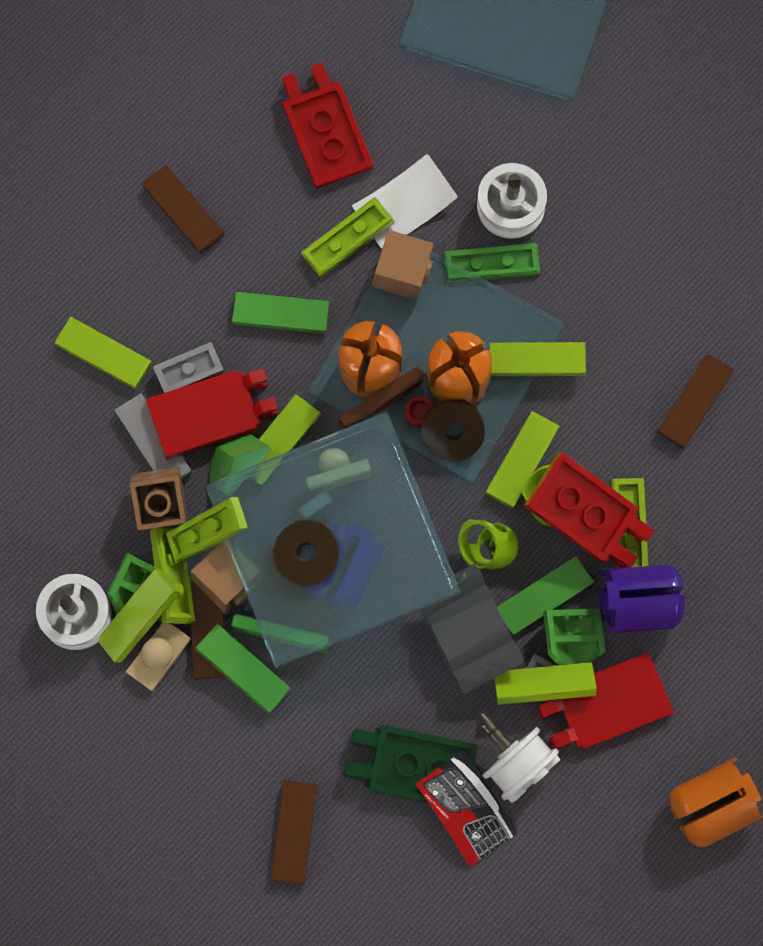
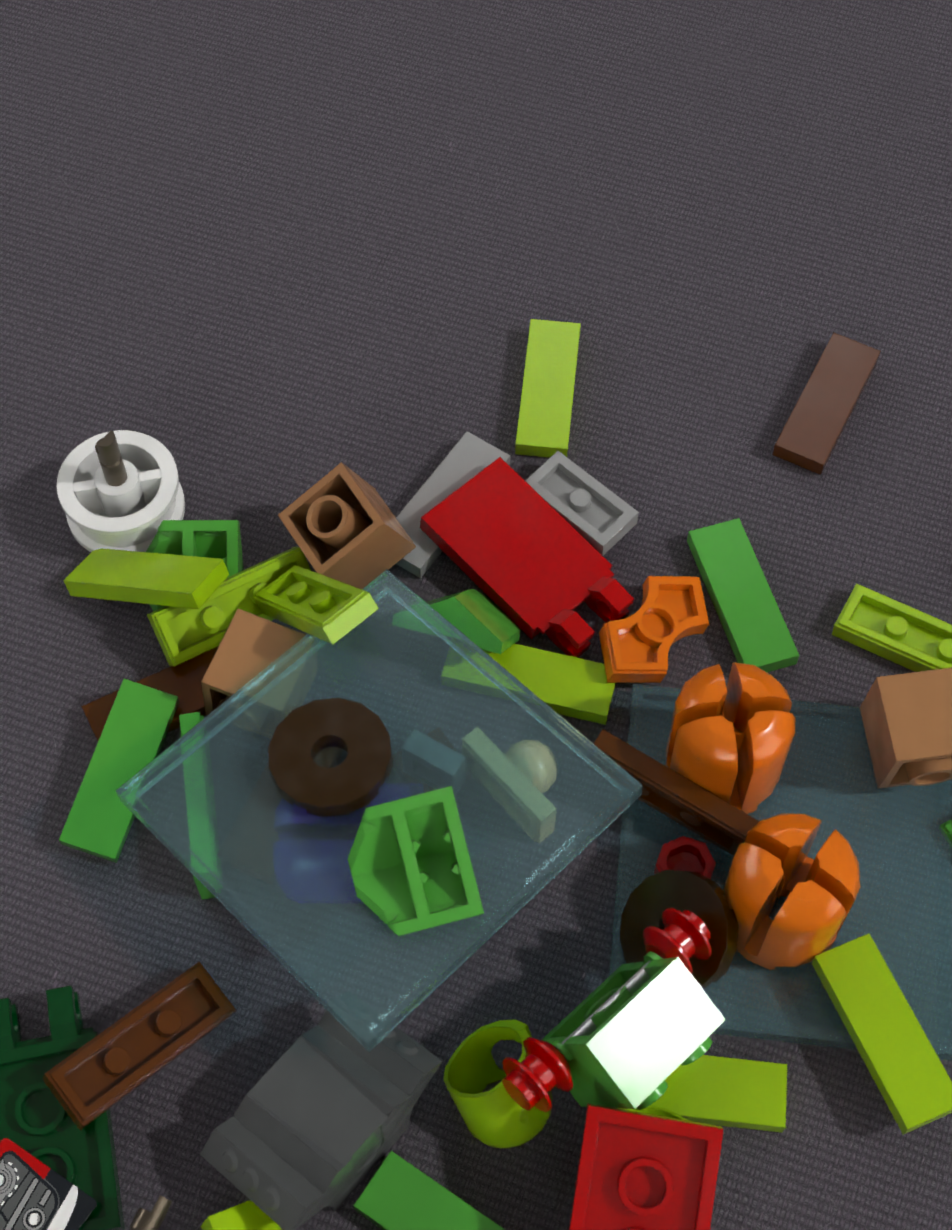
camera: 65 degrees right, 15 degrees down
(158, 655) = (100, 642): tan tile -> none
(288, 376) = (639, 645): none -> orange tile
(386, 533) = (414, 863): none -> bright green slope
(396, 705) = (138, 1045): none -> reddish brown tile
(494, 473) = (627, 1030): none -> brick

